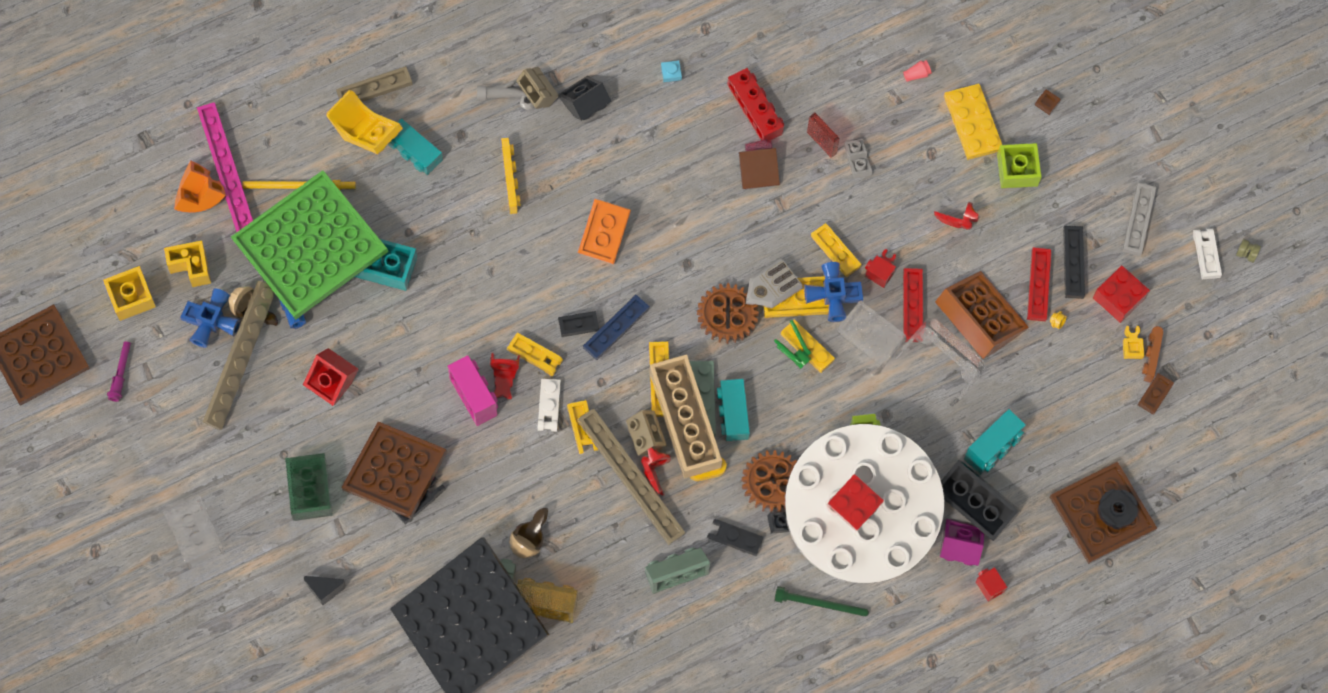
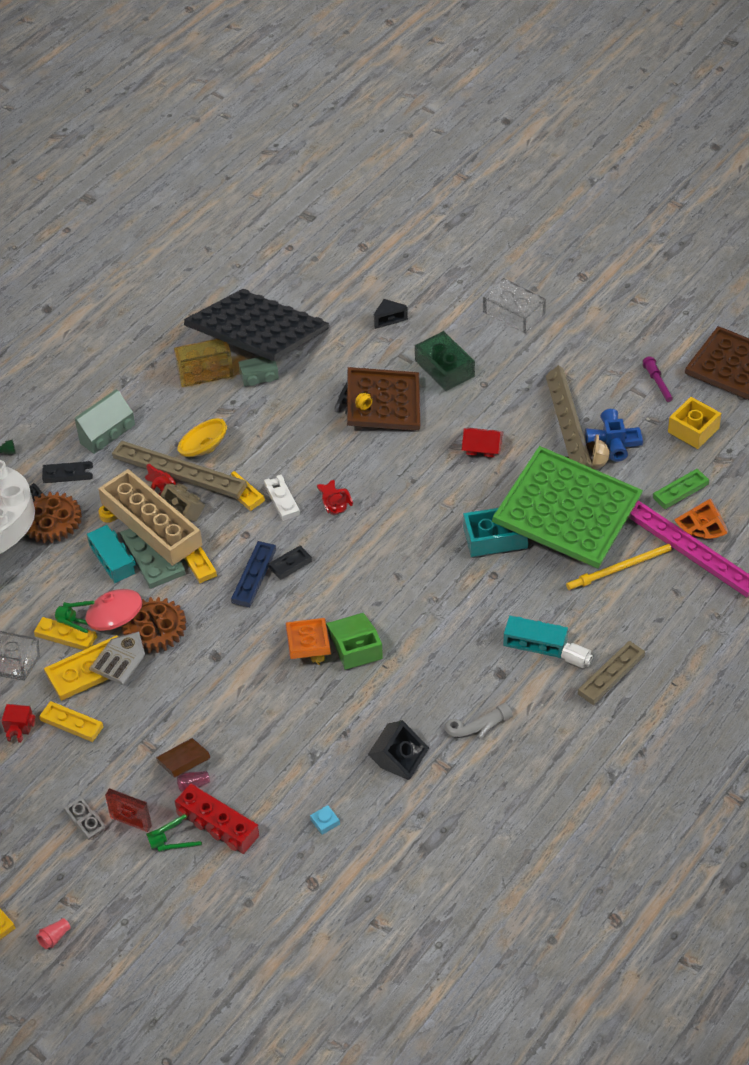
camera: 160 degrees right, 20 degrees down
(189, 258) = (663, 466): yellow brick -> none
(205, 232) = (680, 488): none -> bright green plate
(361, 125) = (592, 627): yellow bracket -> none
(390, 110) = (577, 655): none -> white brick
(420, 459) = (363, 401): none -> yellow plate
(473, 390) = (352, 468): dark pink brick -> none
(511, 182) = (429, 651): yellow plate -> none
(528, 536) = (242, 395): piece -> none
(534, 353) = (316, 525): yellow plate -> none
(537, 87) = (449, 734): dark tan brick -> none
(564, 215) = (355, 640): none -> bright green slope
(601, 509) = (202, 438): none -> yellow dish
(744, 345) = (113, 609): none -> coral dish
(806, 110) = (157, 837): none -> green plant
(834, 292) = (53, 669): blue brick -> none

